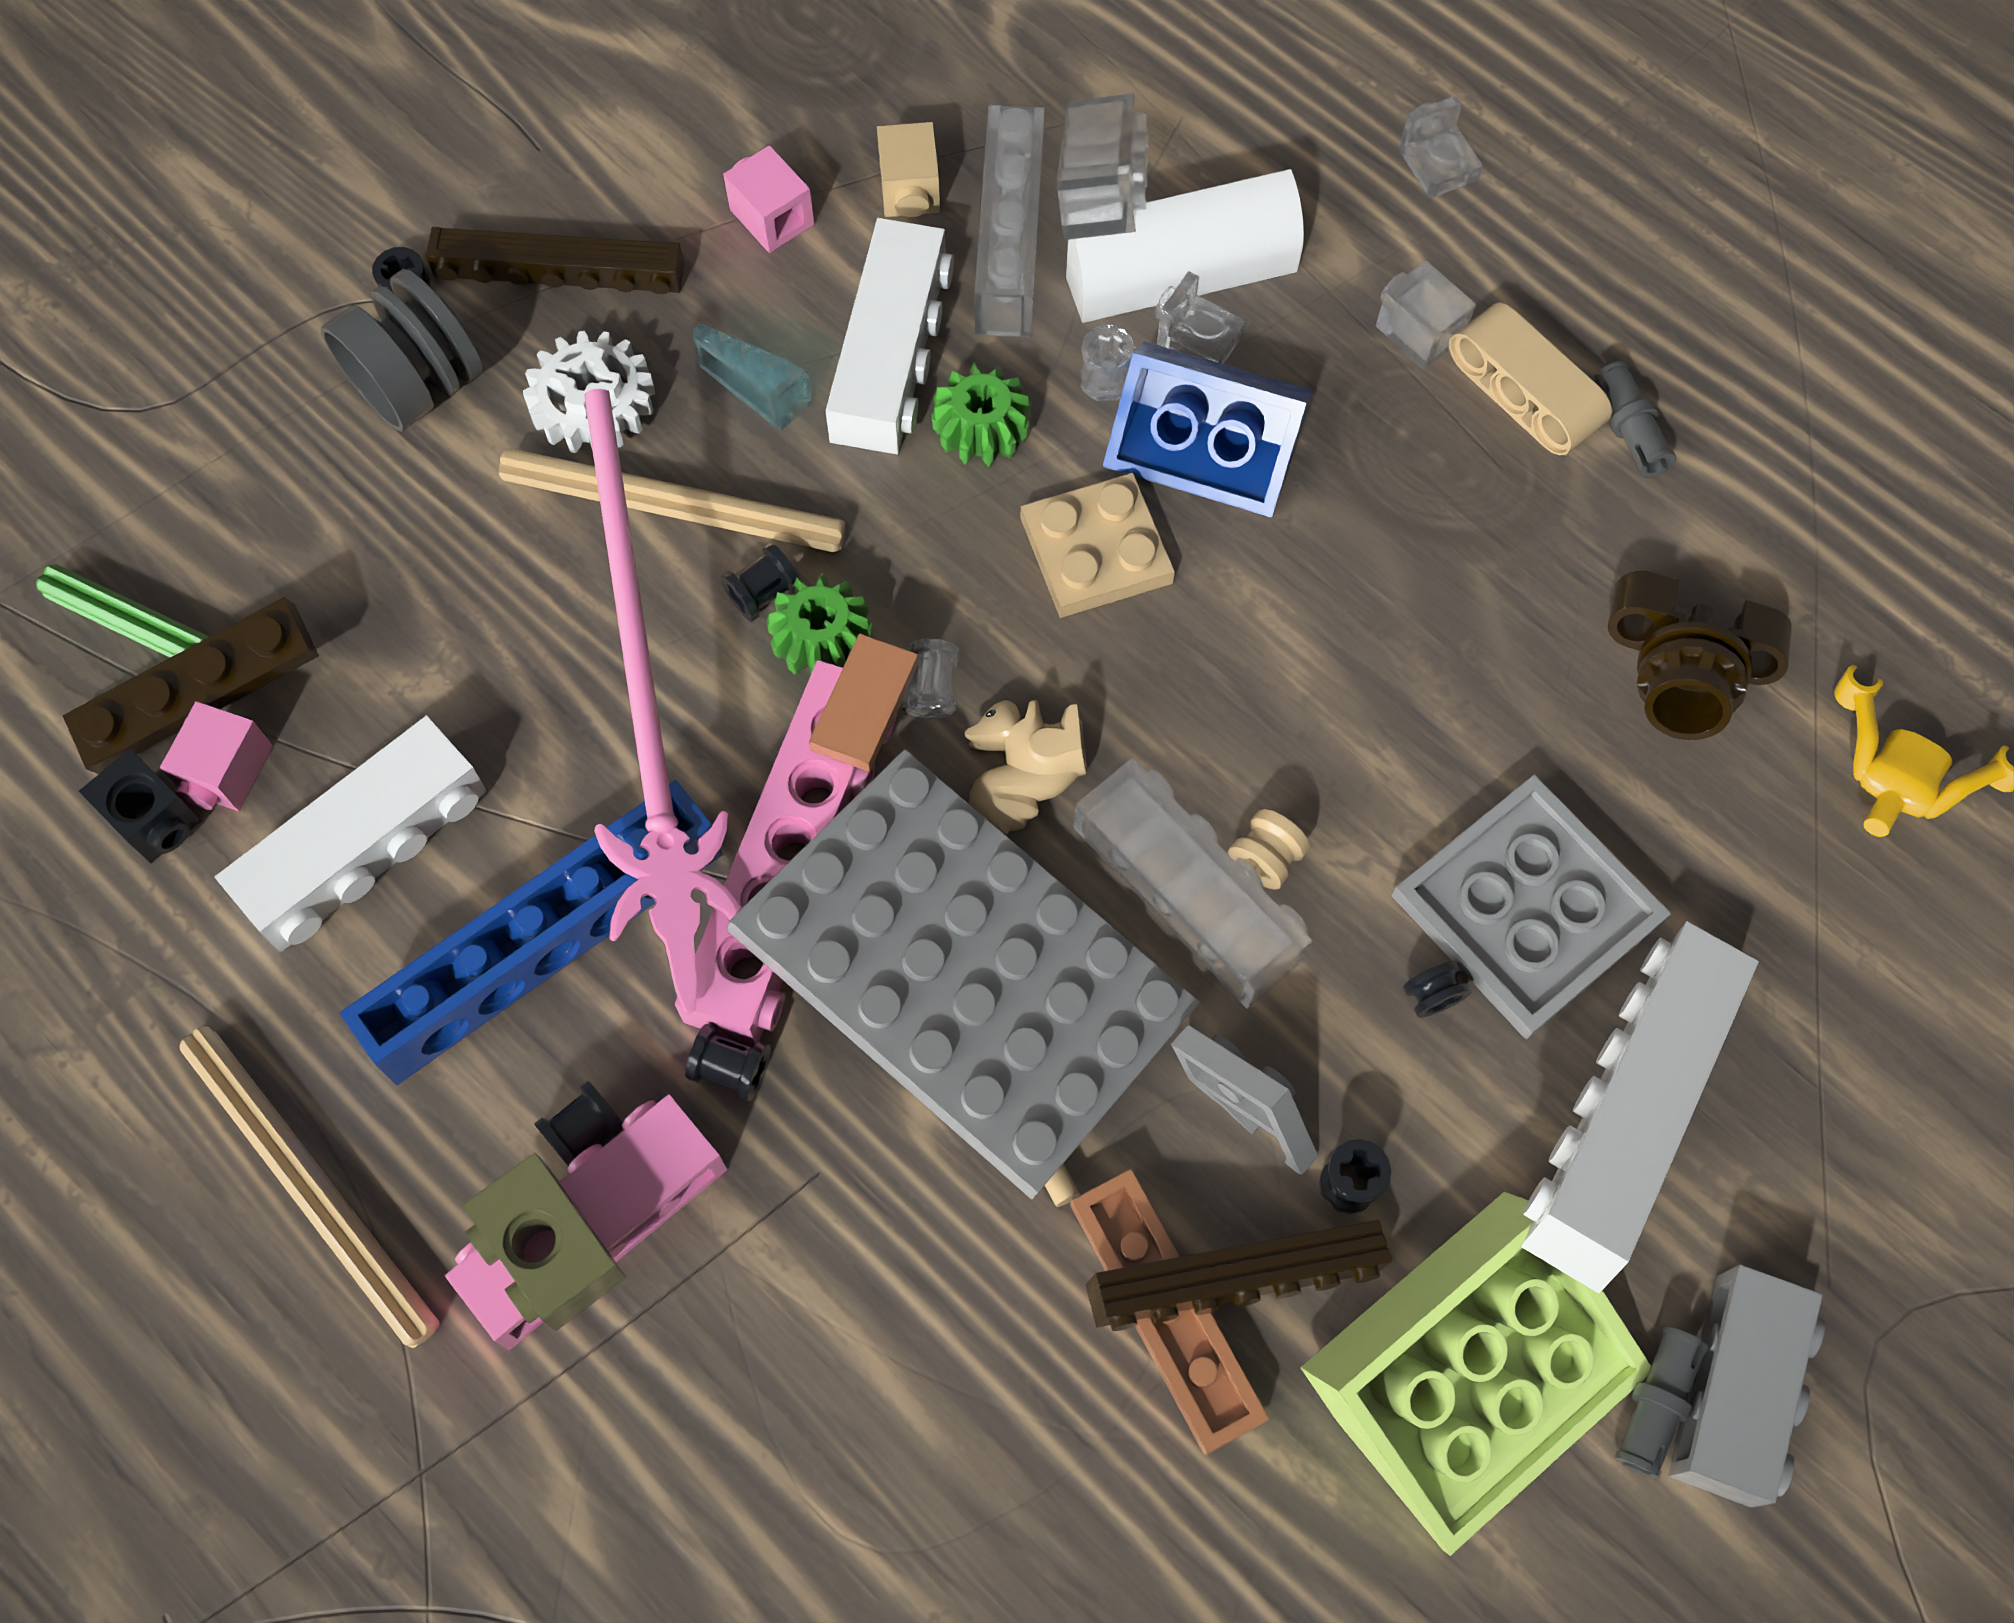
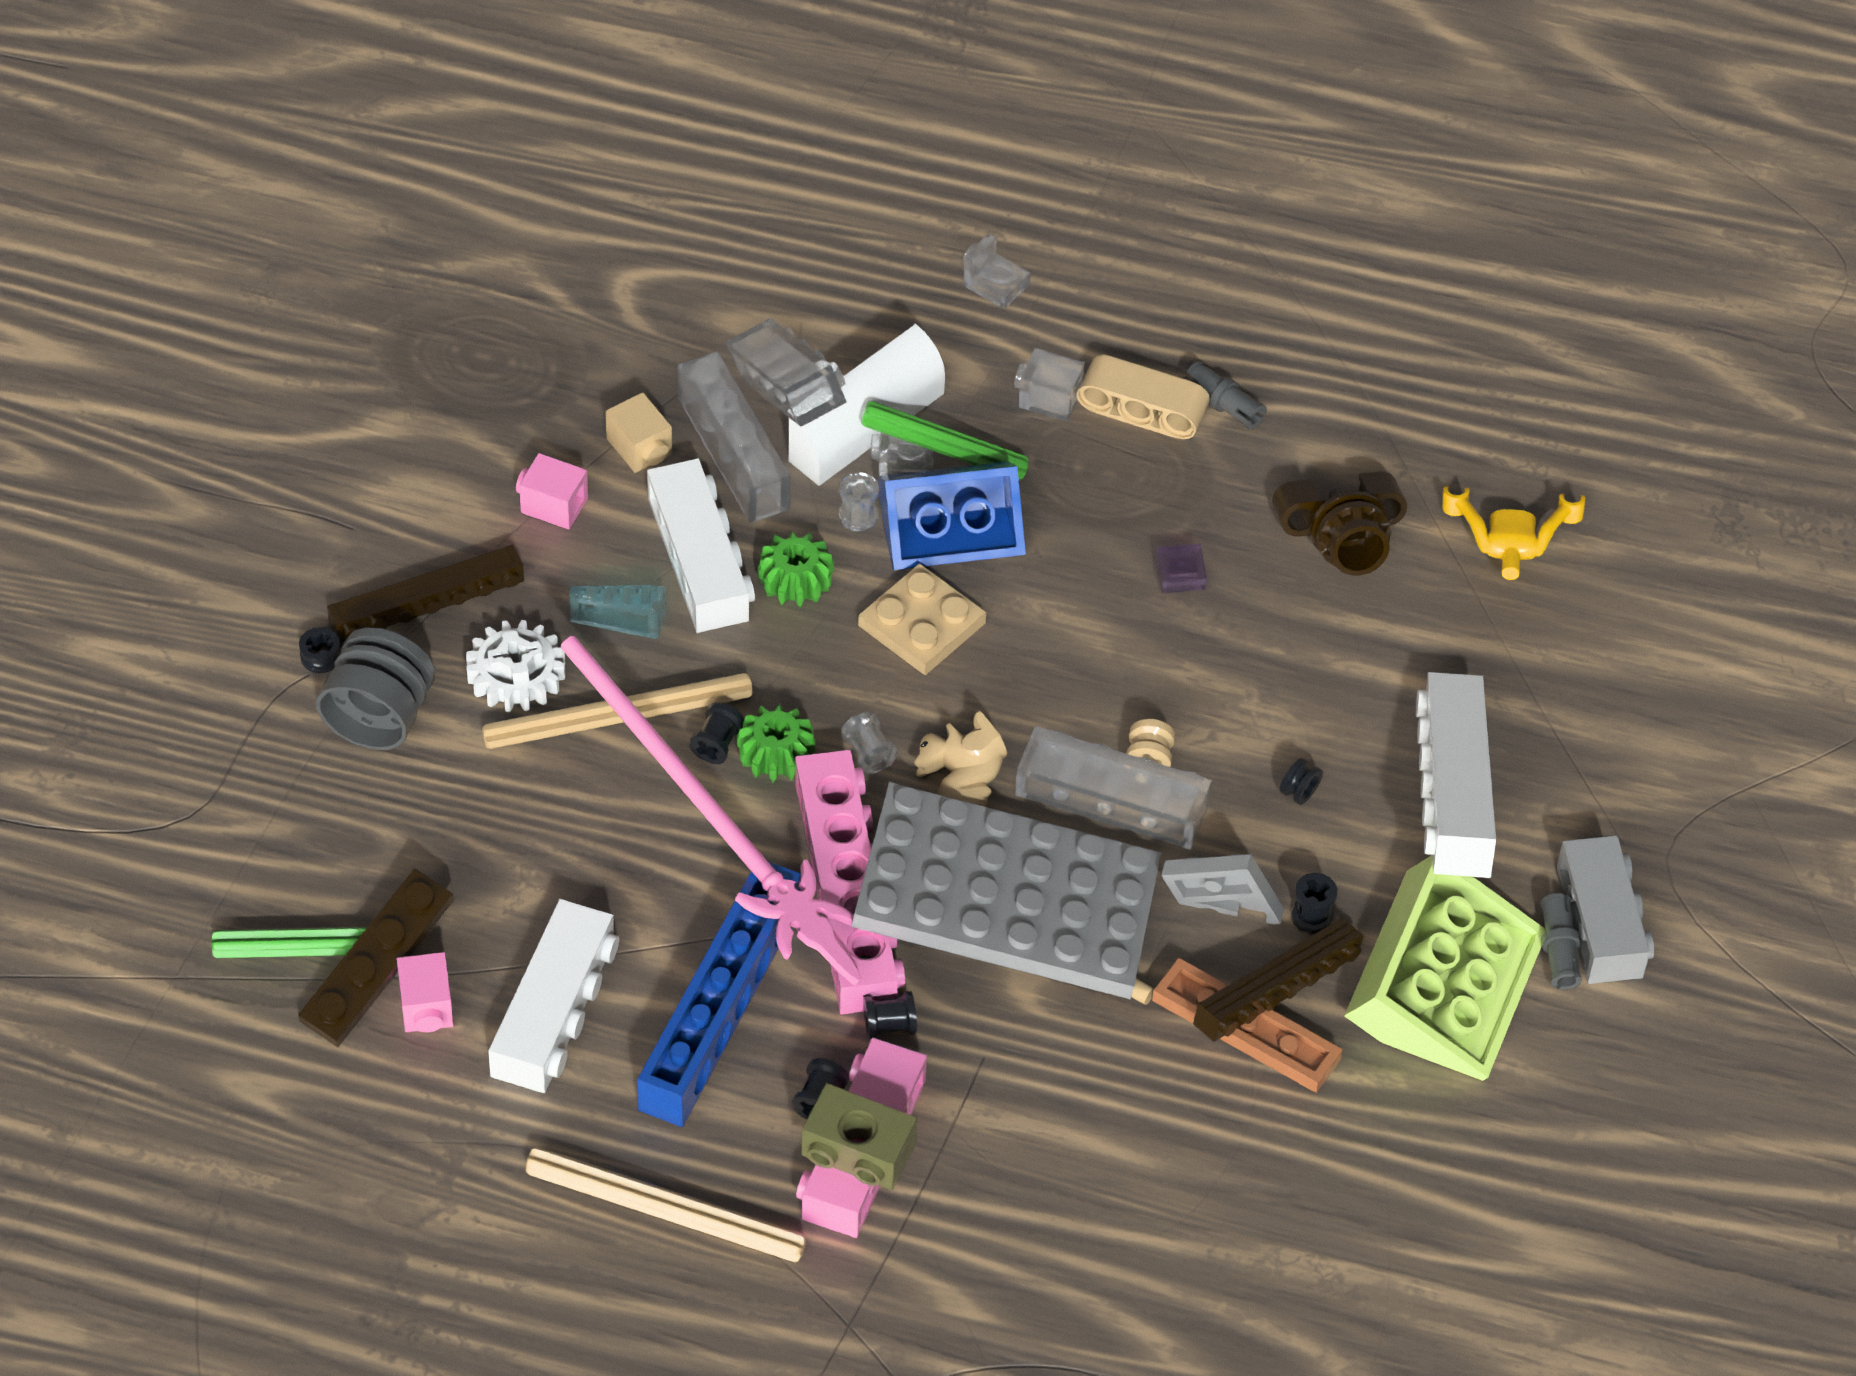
camera: 30 degrees left, 15 degrees down
(128, 787) = (392, 1026): black brick -> none
(864, 702) = (846, 765): nougat tile -> none
(1245, 328) = (938, 438): none -> bright green axle
(1449, 622) = (1181, 568): none -> clear purple plate
(1530, 906) = (1329, 710): light grey plate -> none

